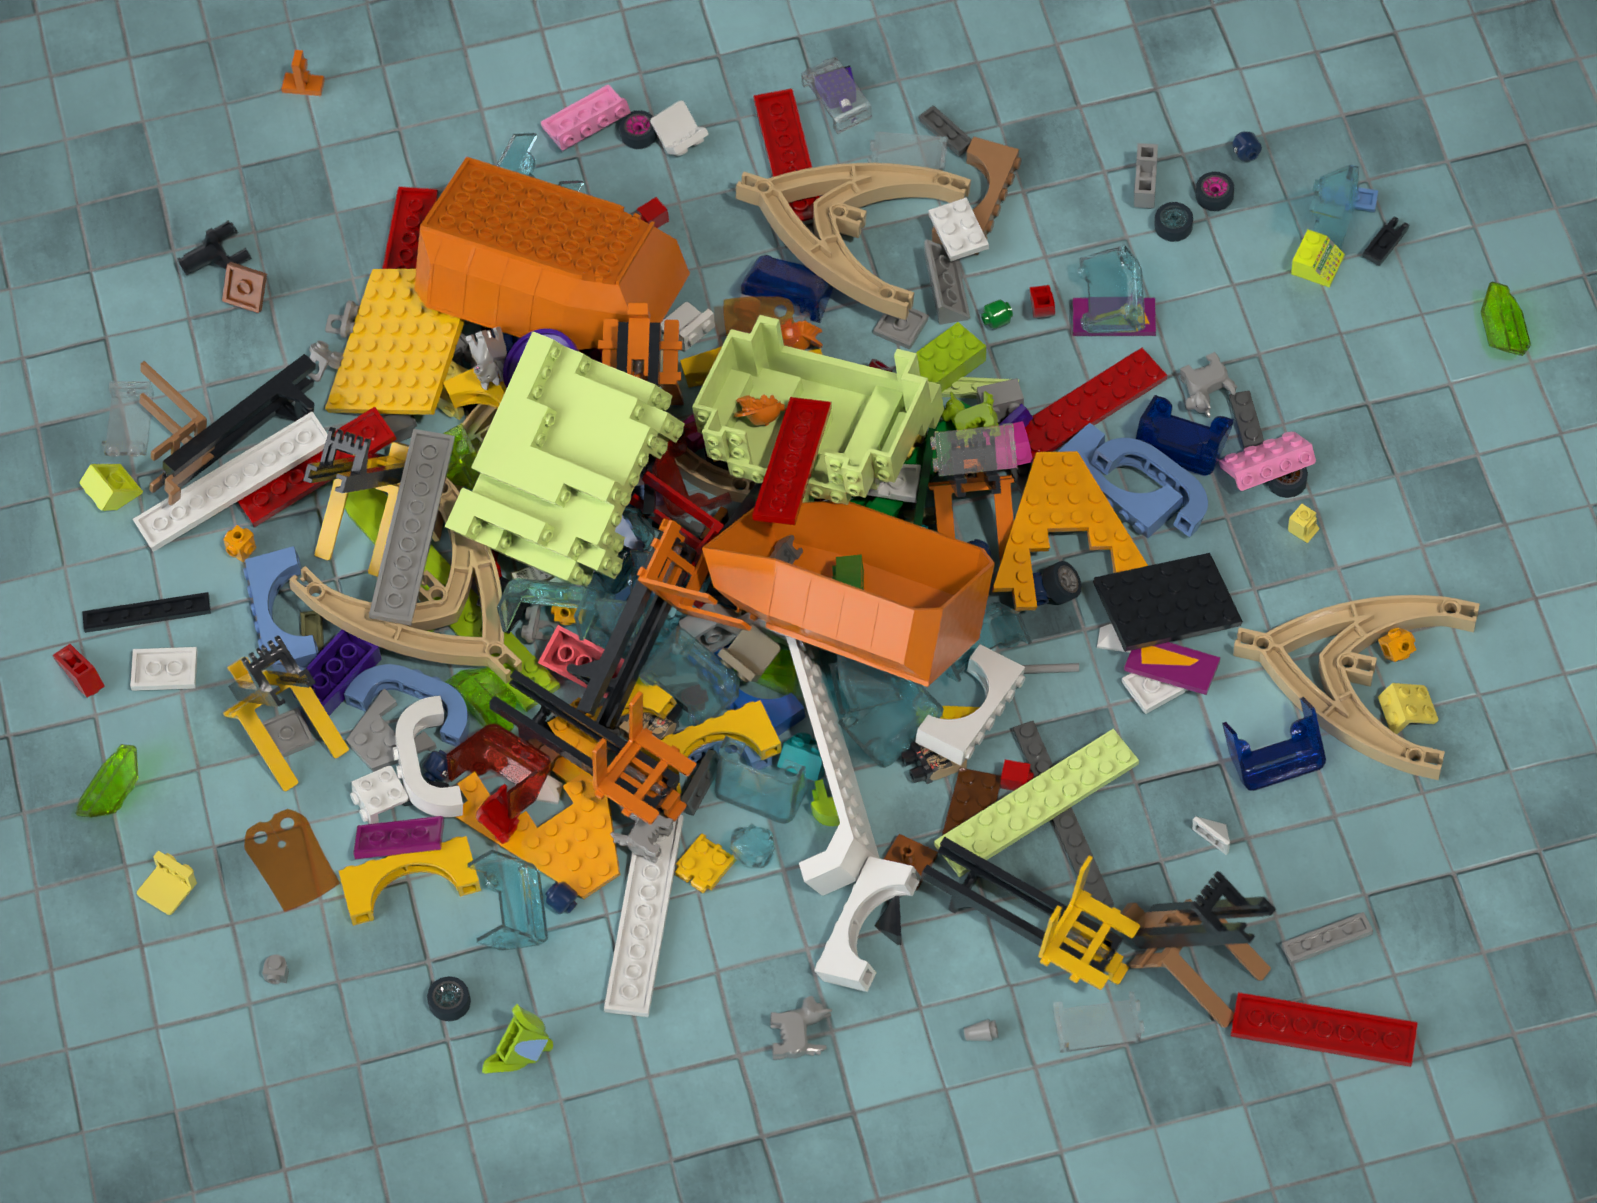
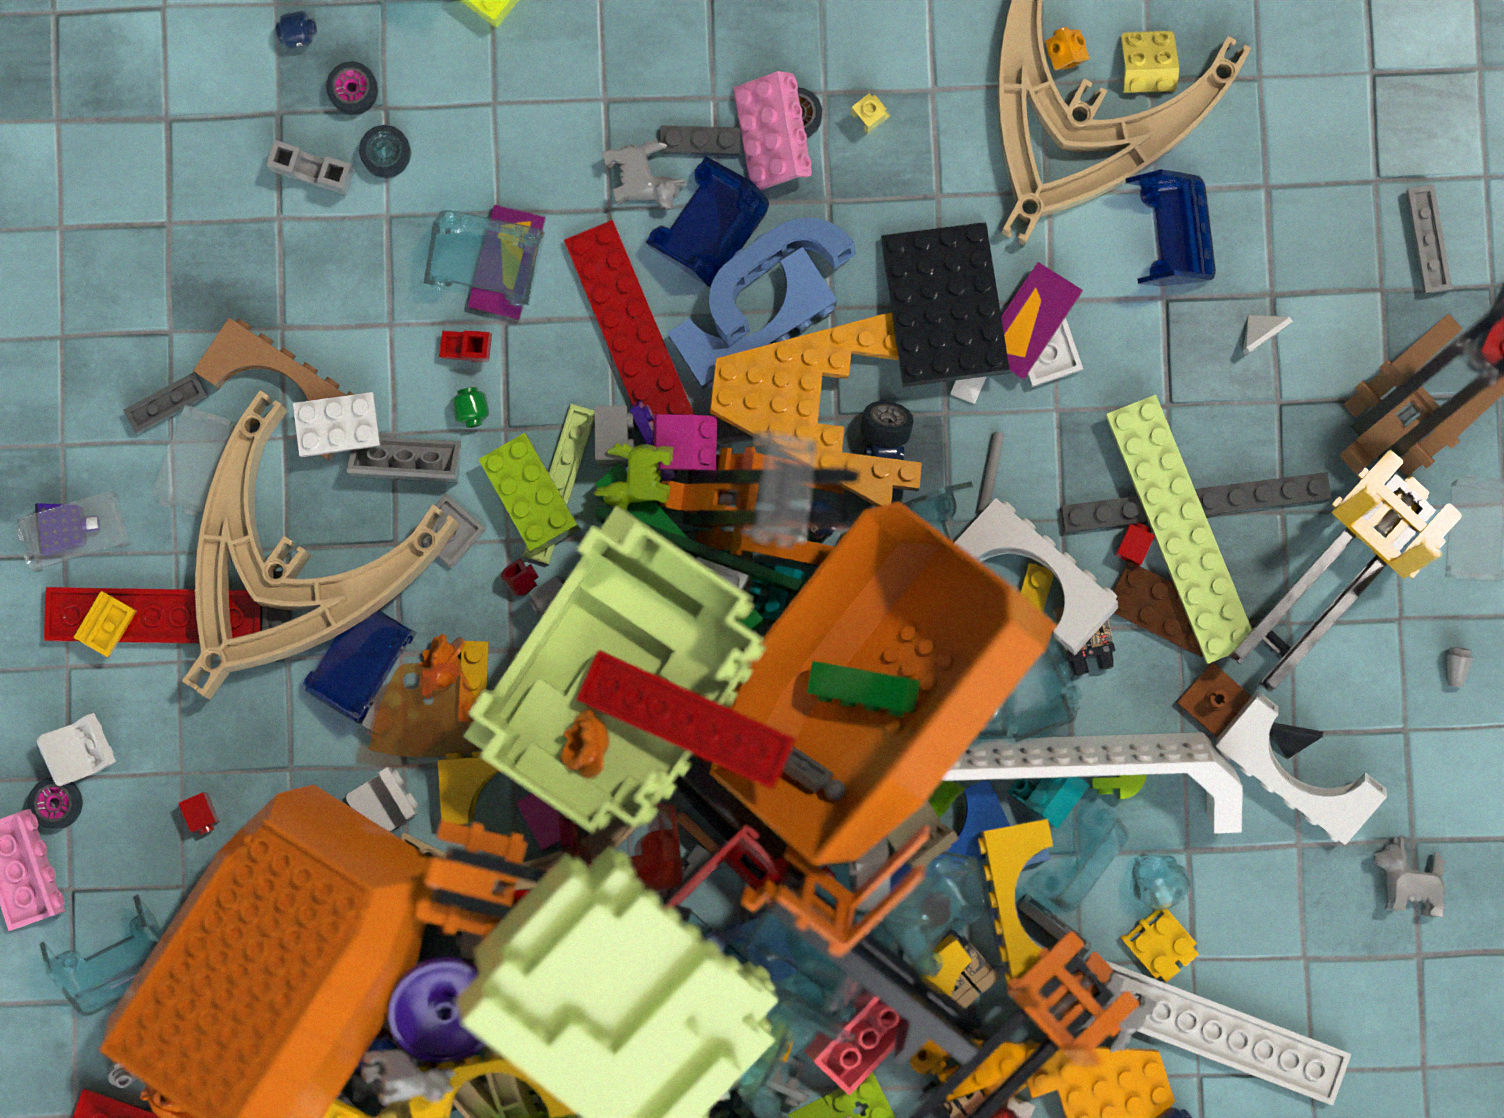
camera: 80 degrees left, 25 degrees up
(774, 125) = (105, 624): none -> yellow plate

